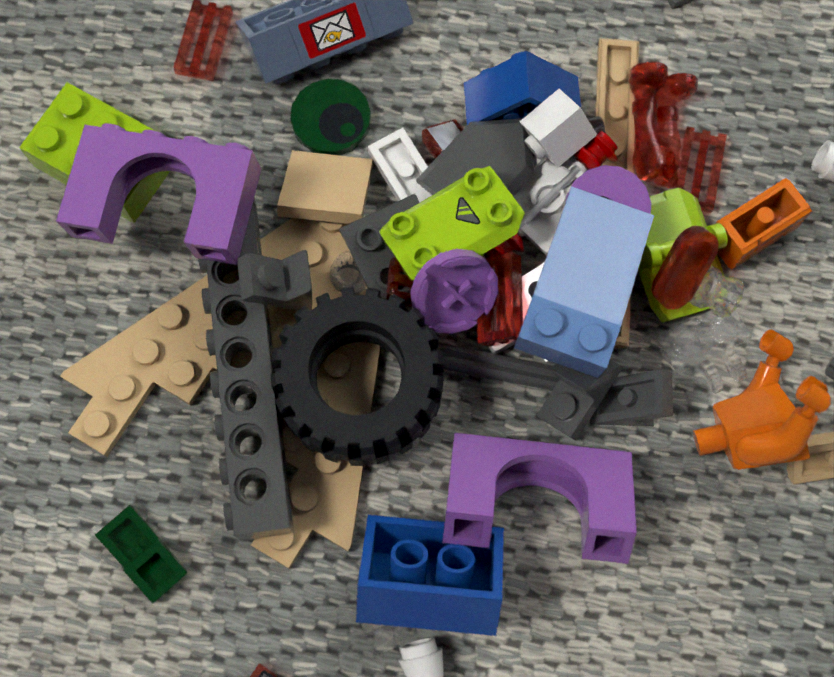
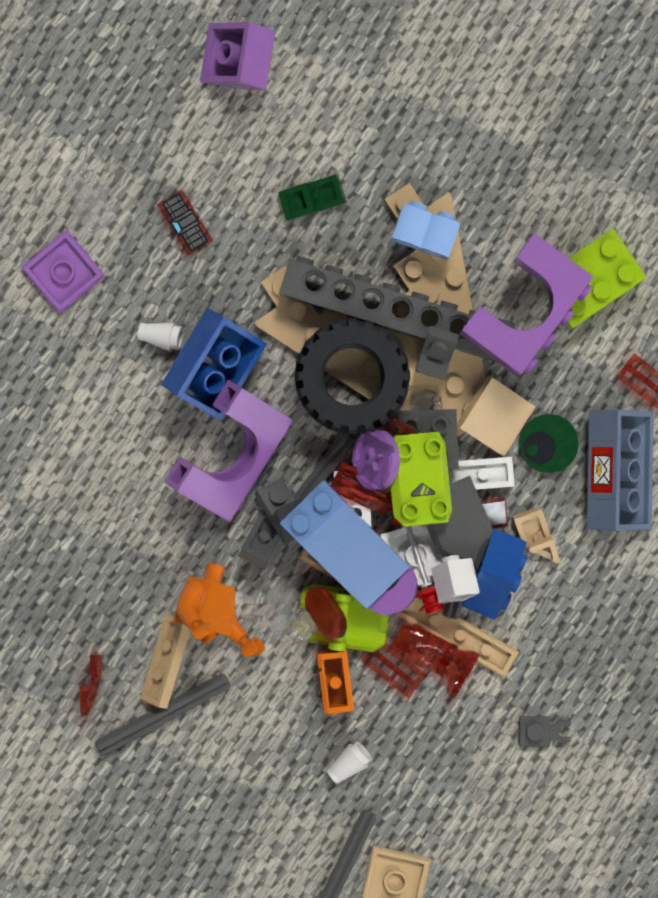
camera: 115 degrees right, 15 degrees up
(119, 375) = (425, 230): none -> light blue brick
(445, 87) = (534, 530): none -> tan slope

